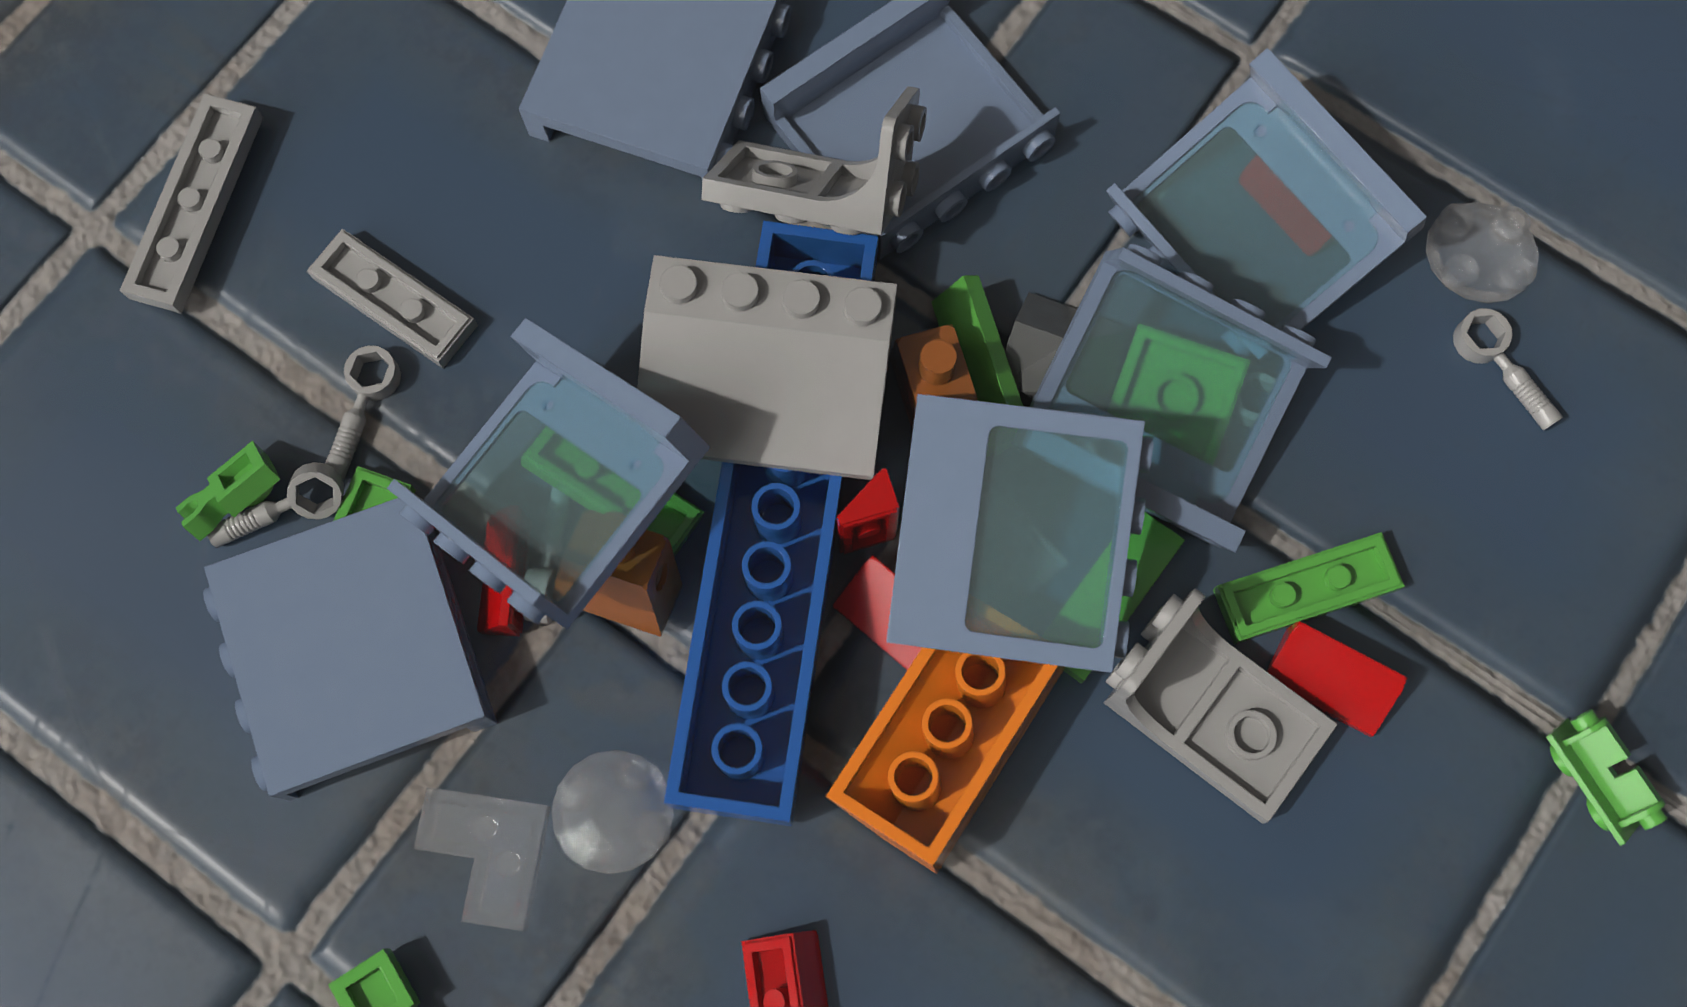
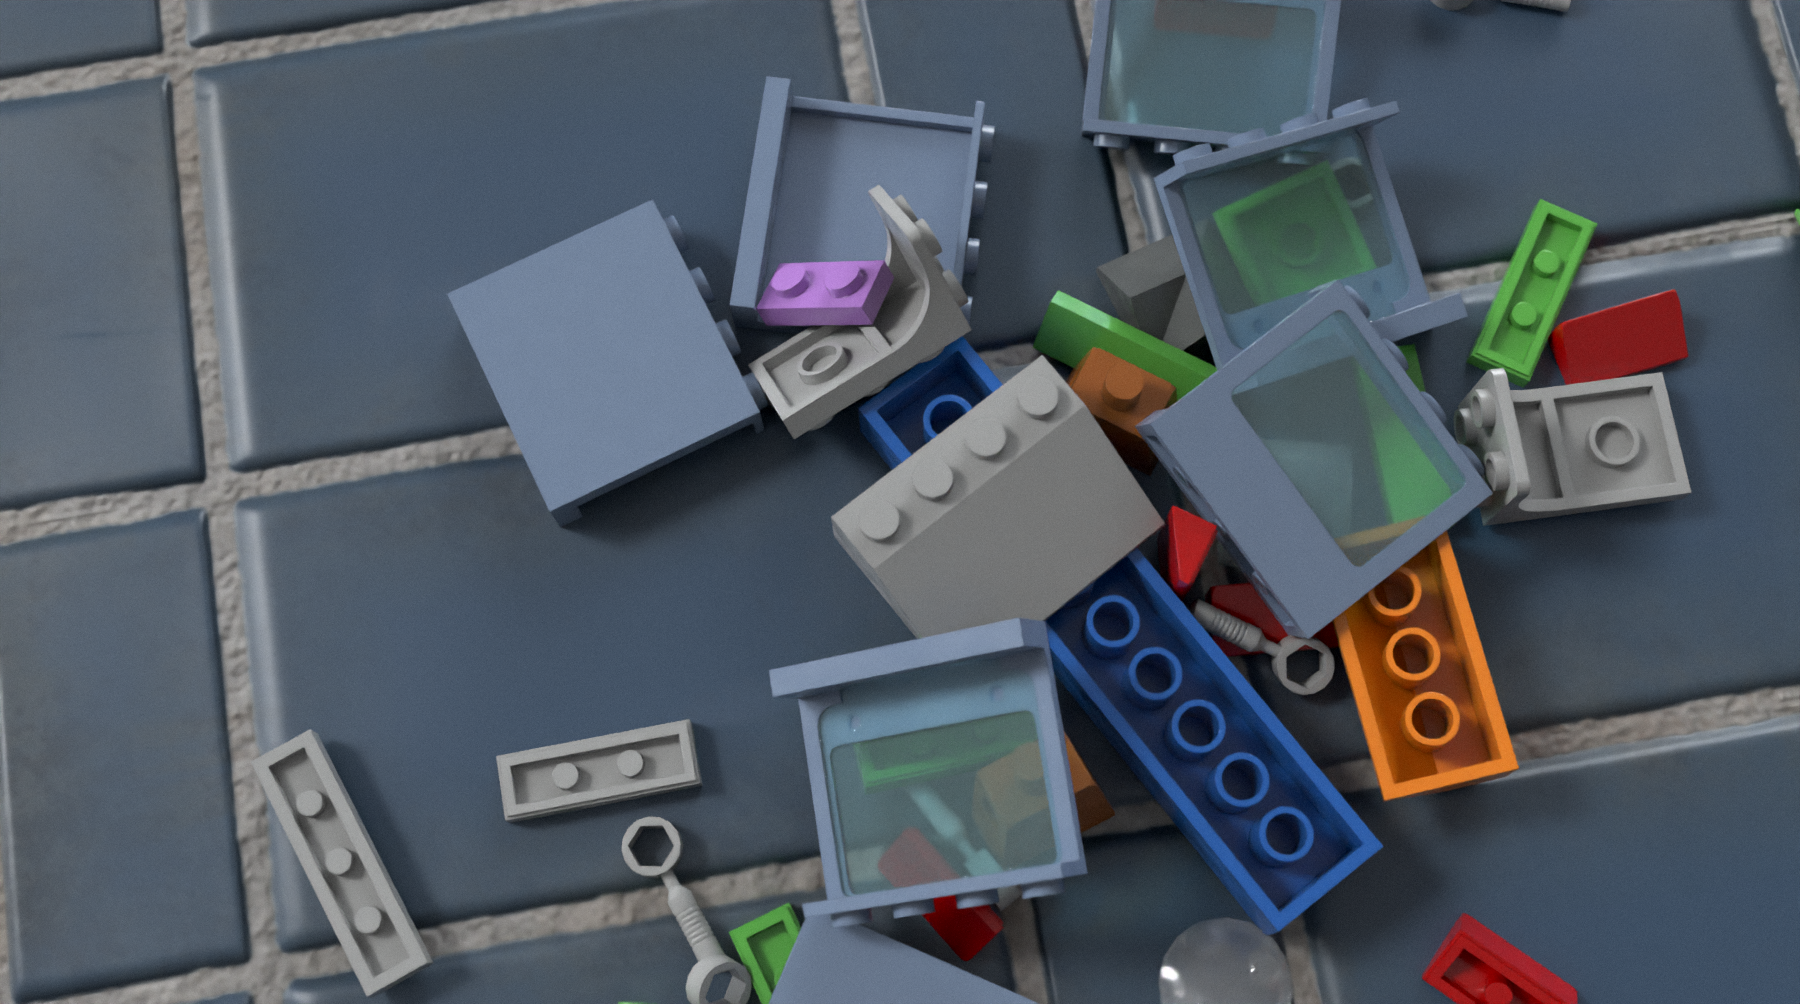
camera: 45 degrees left, 0 degrees up
(826, 136) = (825, 293): none -> medium lavender plate
(864, 616) = (1252, 639): none -> light grey piece

